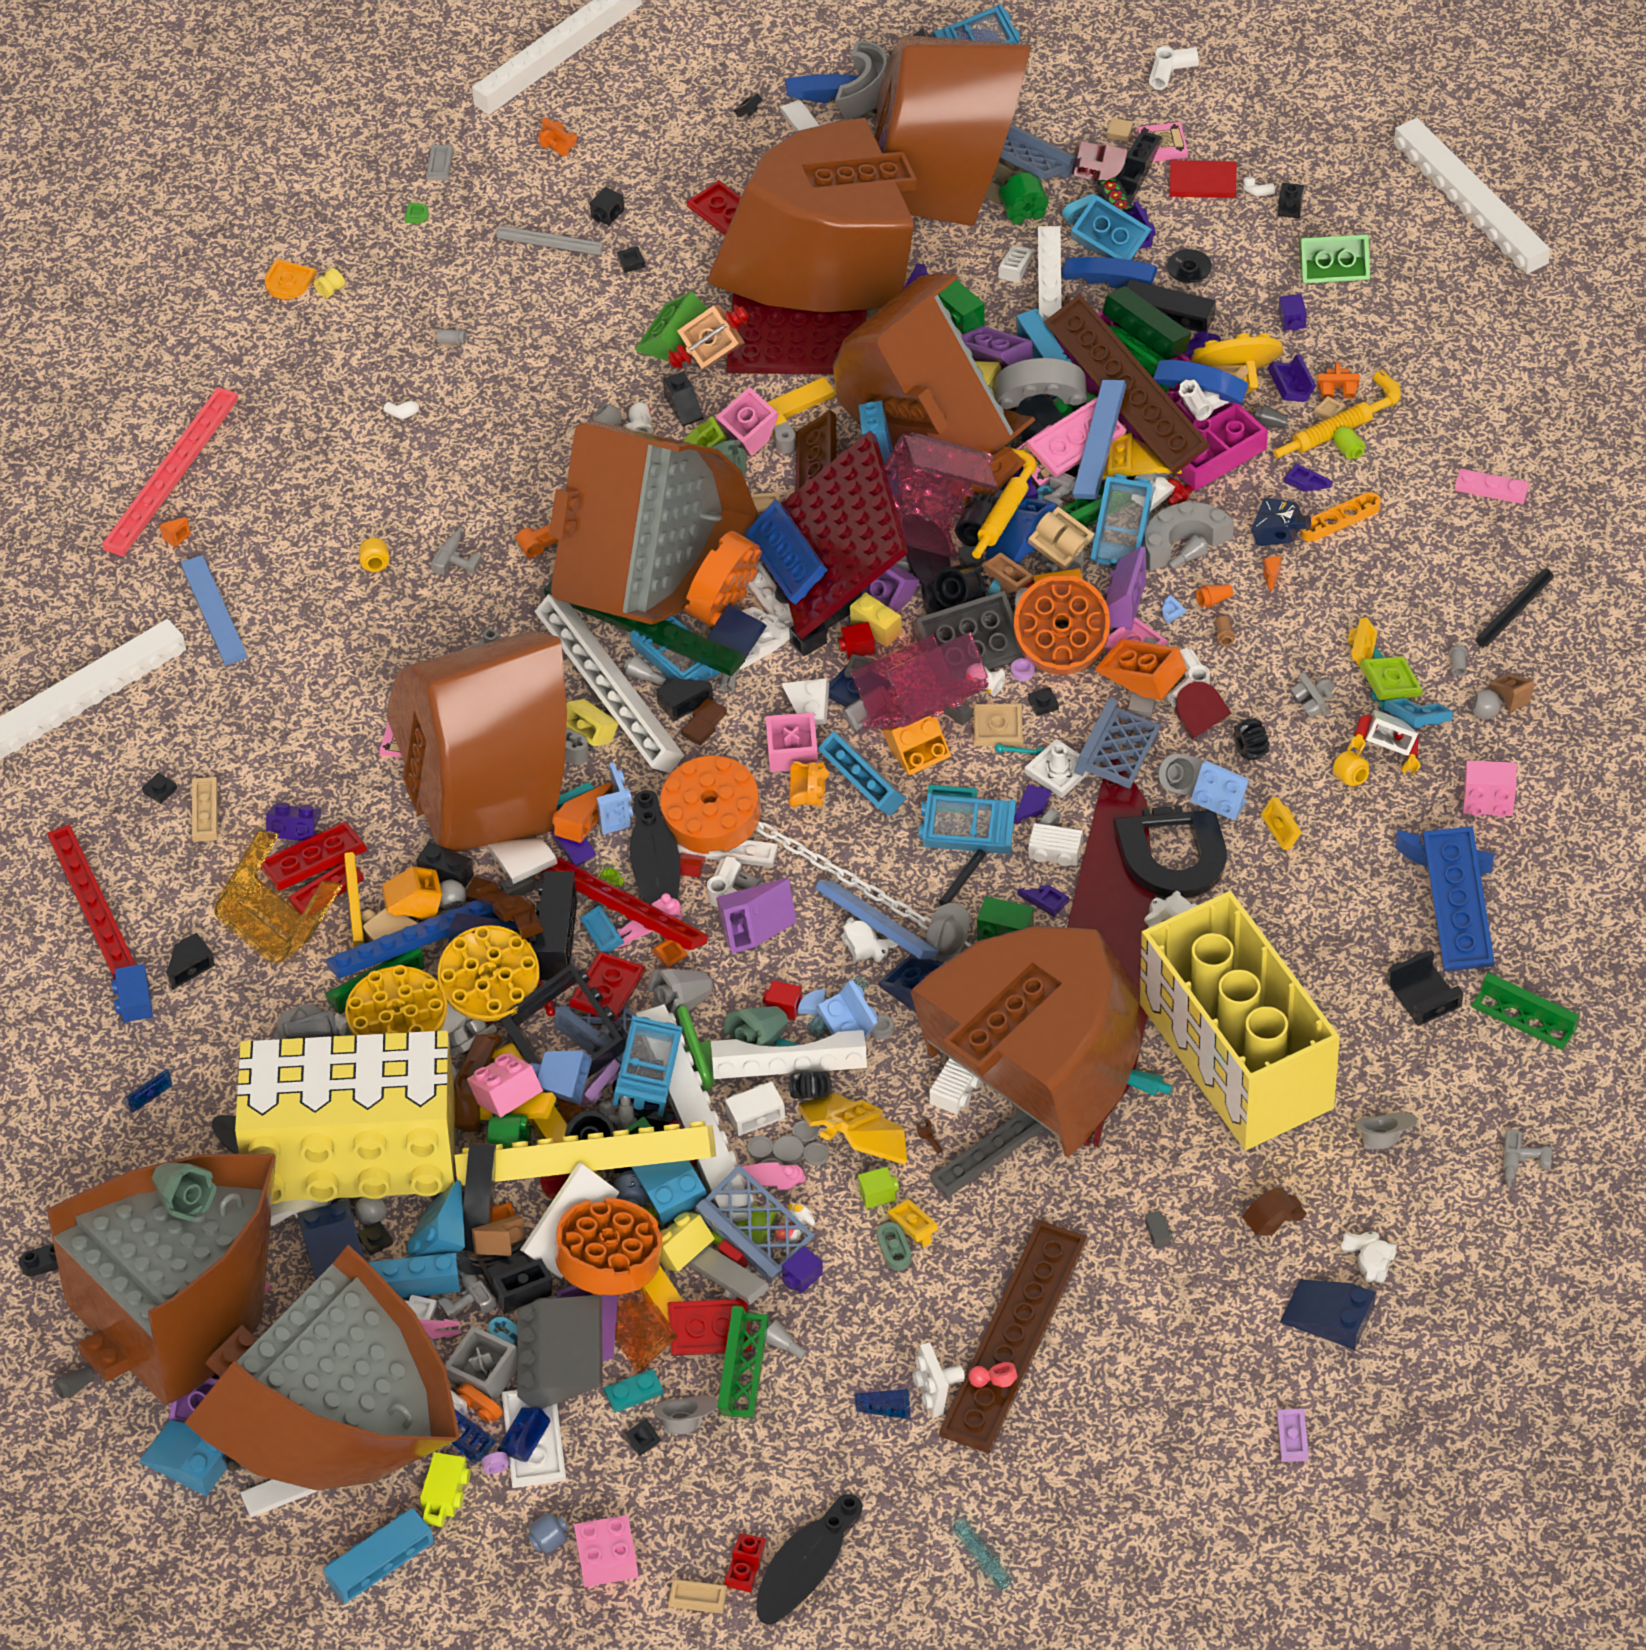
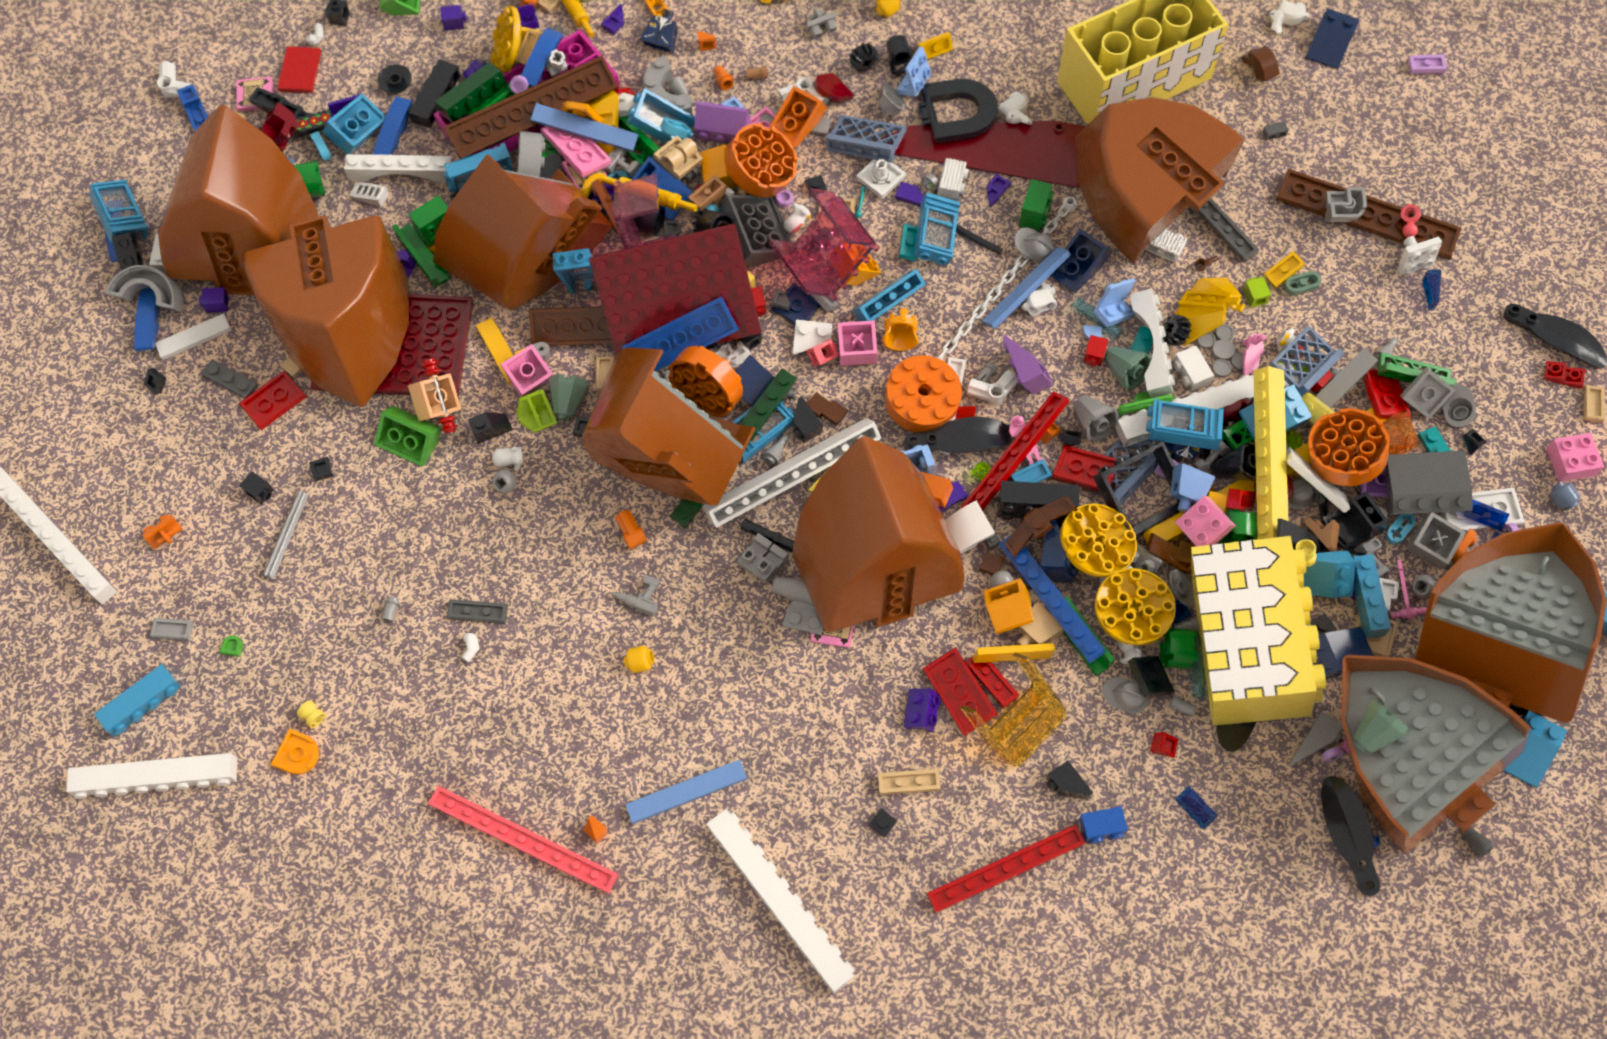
camera: 90 degrees left, 15 degrees up
(227, 1064) = (1164, 744): none -> red slope
(270, 167) = (151, 775): none -> white brick
(355, 144) = (137, 700): none -> dark azure brick
(446, 413) = (477, 611): none -> dark grey tile
(446, 863) = (974, 587): black brick -> none
(452, 1183) = (1309, 550): none -> light yellow wheel
(547, 1123) = (1240, 499): none -> red slope
(649, 964) = (1070, 437): none -> black plate
(704, 1367) = (1427, 393): none -> light grey plate
(742, 176) = (229, 379): none -> dark grey plate
(777, 704) = (816, 355): none -> coral brick
(801, 1270) = (1332, 336): dark purple brick -> none
(988, 1561) = (1543, 232): clear light blue pin -> none
(1008, 1284) = (1345, 205): none -> light grey brick
(1112, 536) = (675, 128): none -> medium azure beam
(1116, 430) = (581, 110): none -> light orange tile
(1121, 96) = (192, 105): none -> blue slope
(1152, 361) = (518, 84): none -> lavender tile
(1267, 781) = (899, 53): none -> black piece

